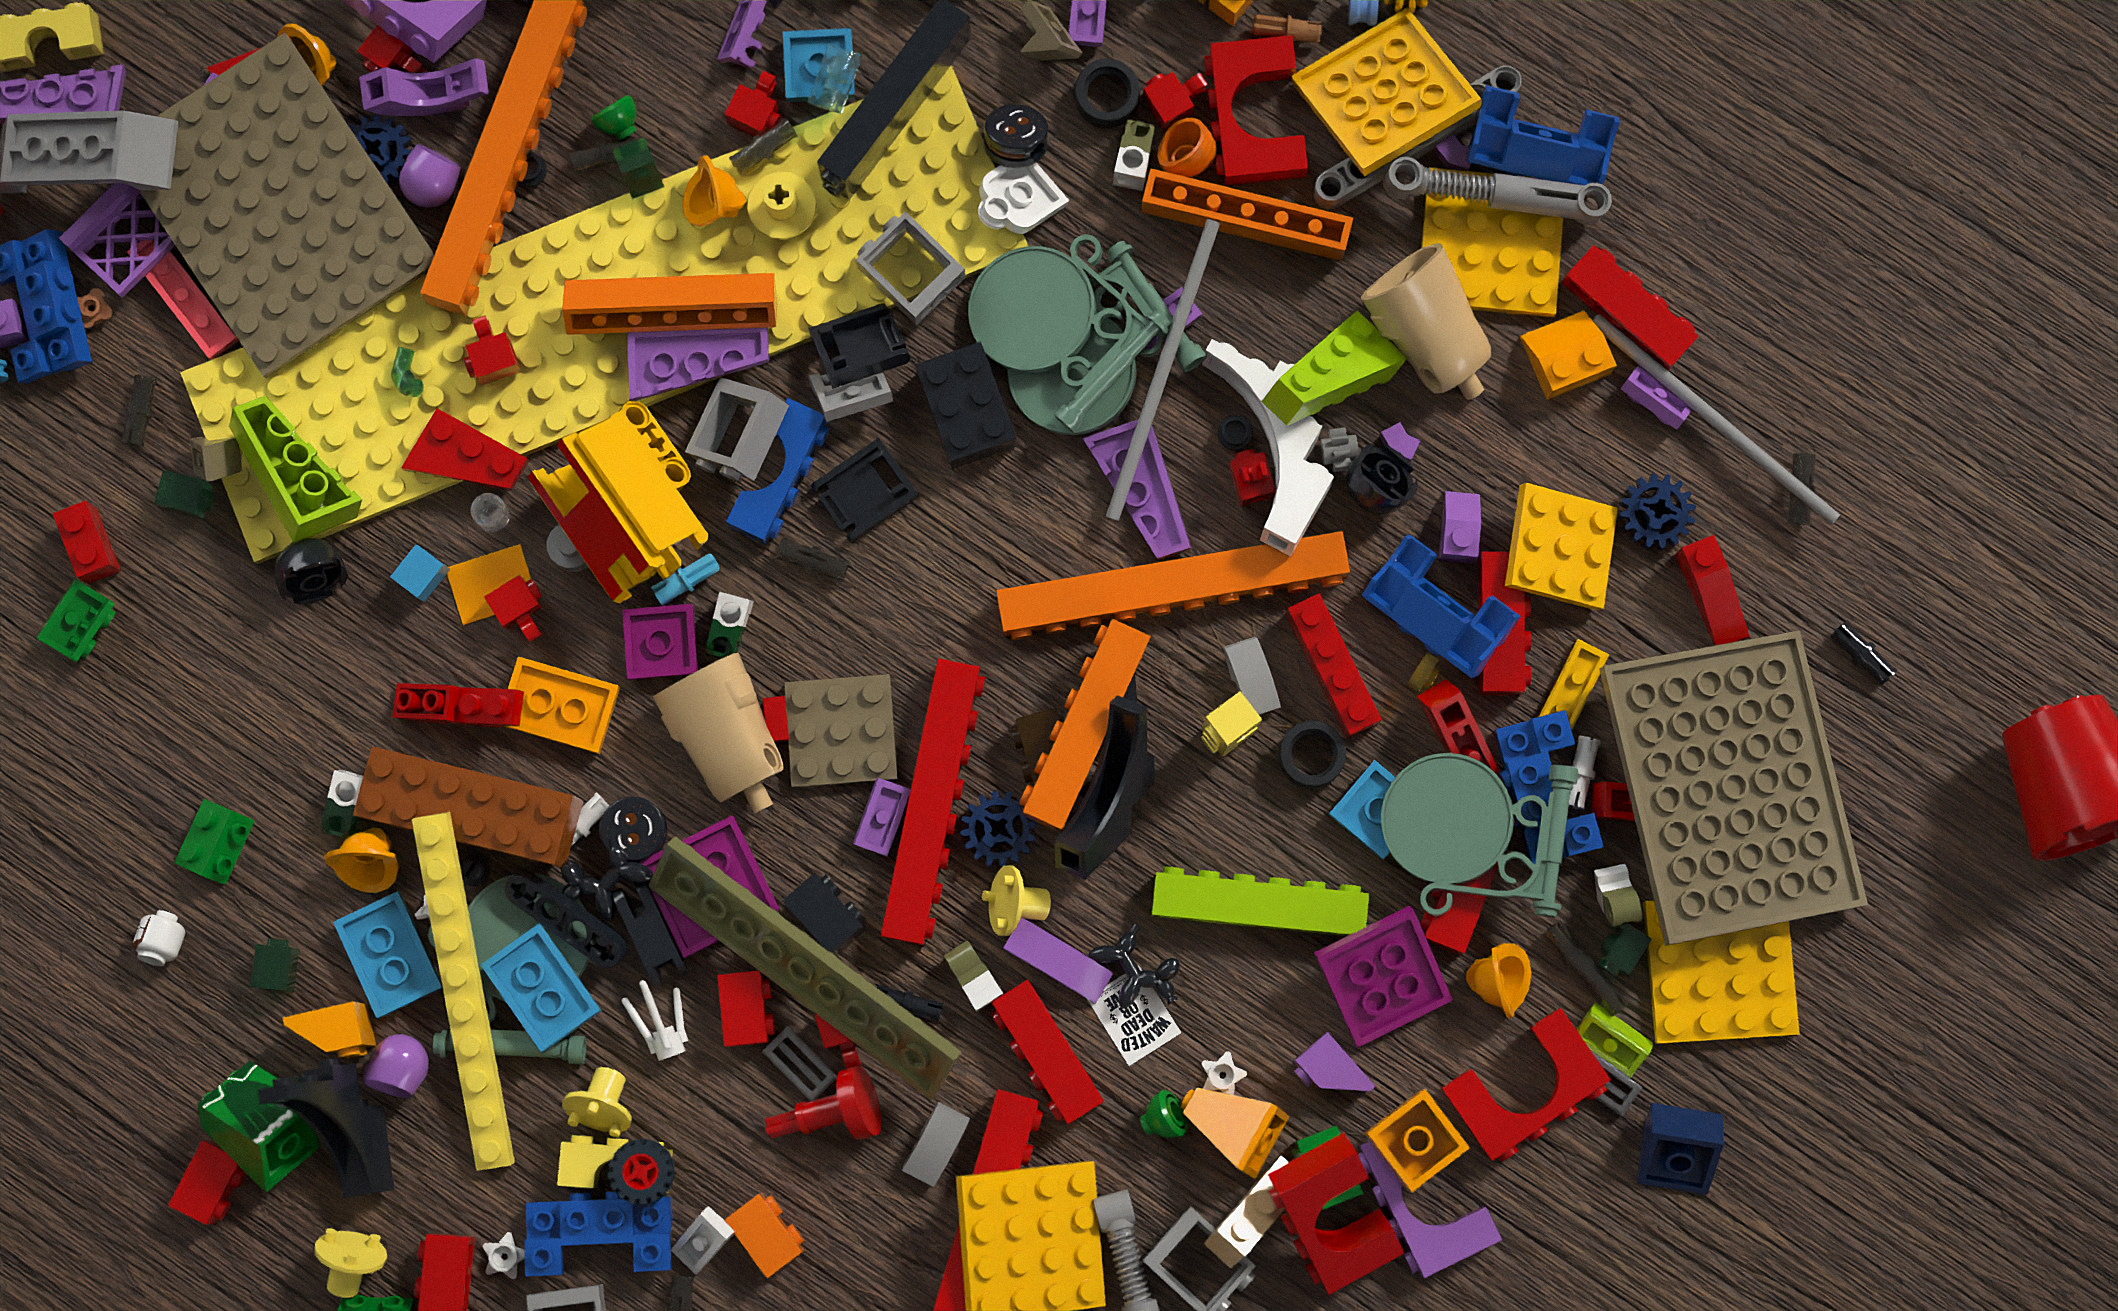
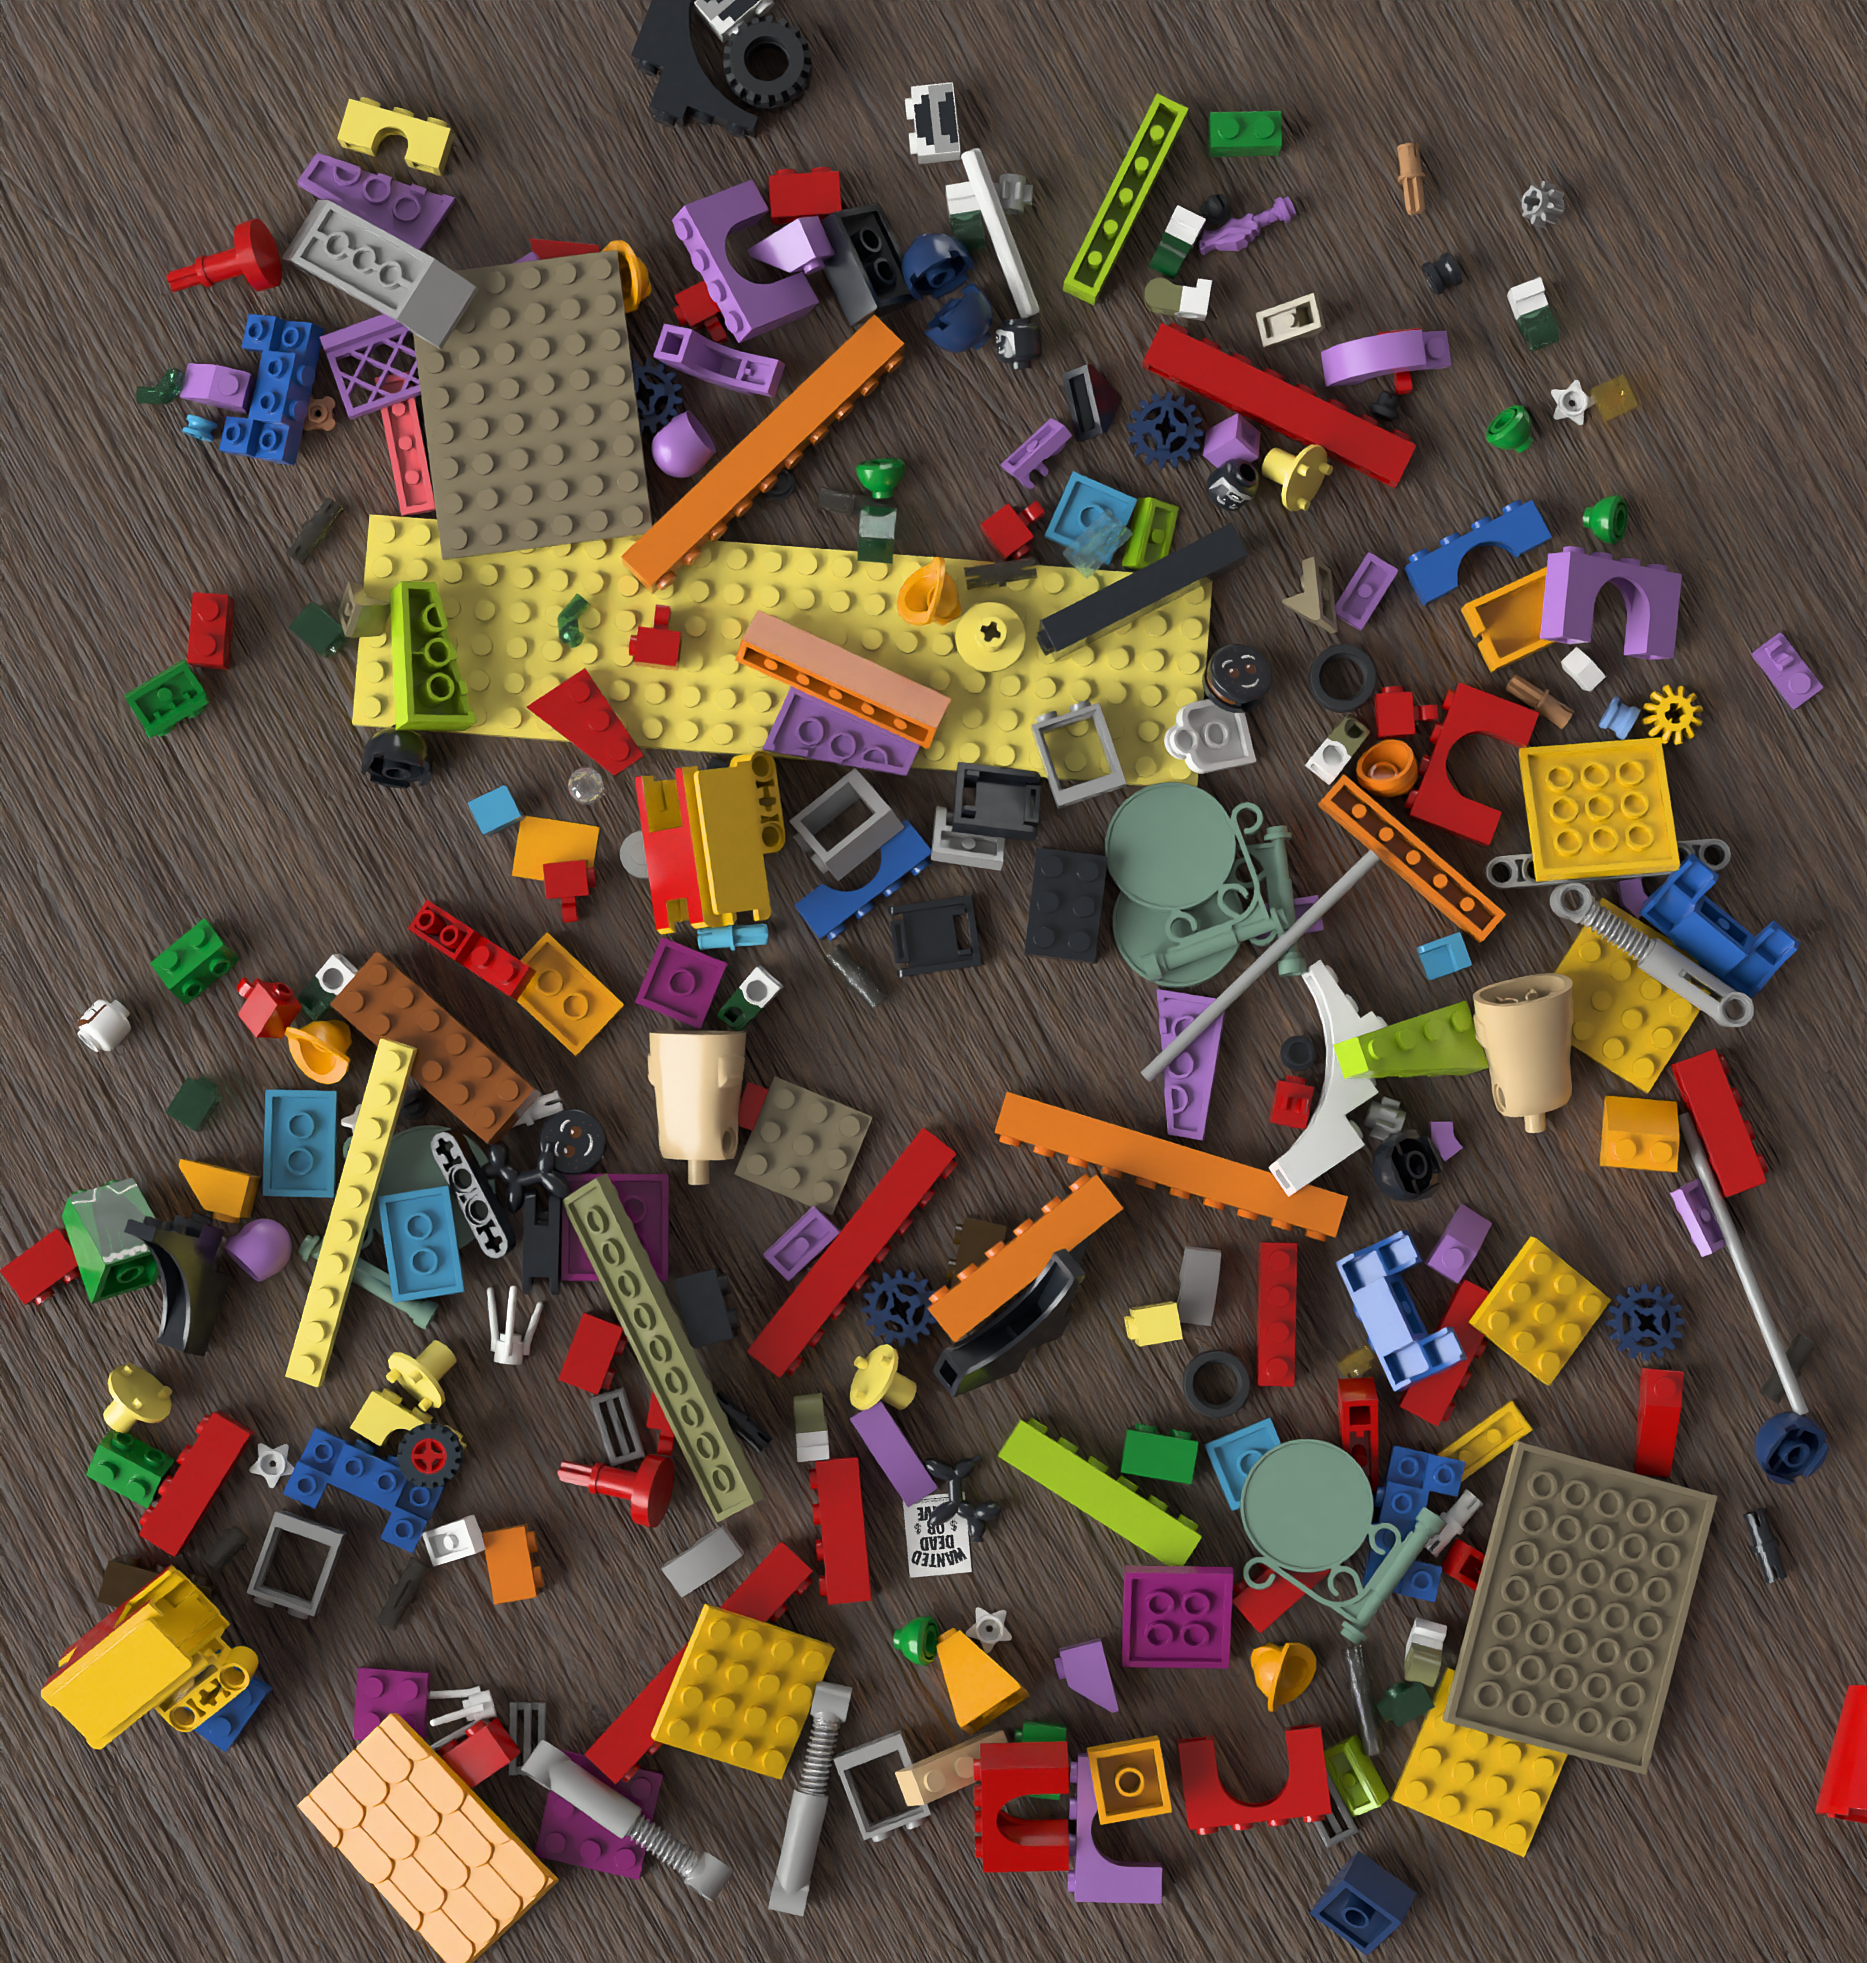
camera: 30 degrees right, 5 degrees up
(299, 847) = (268, 1007): none -> red brick
(877, 47) = (1152, 532): none -> lime slope
(1293, 842) = (1159, 1455): none -> green brick
(1318, 285) = (1444, 956): none -> dark azure panel
(1840, 554) = (1790, 1447): none -> dark blue cylinder

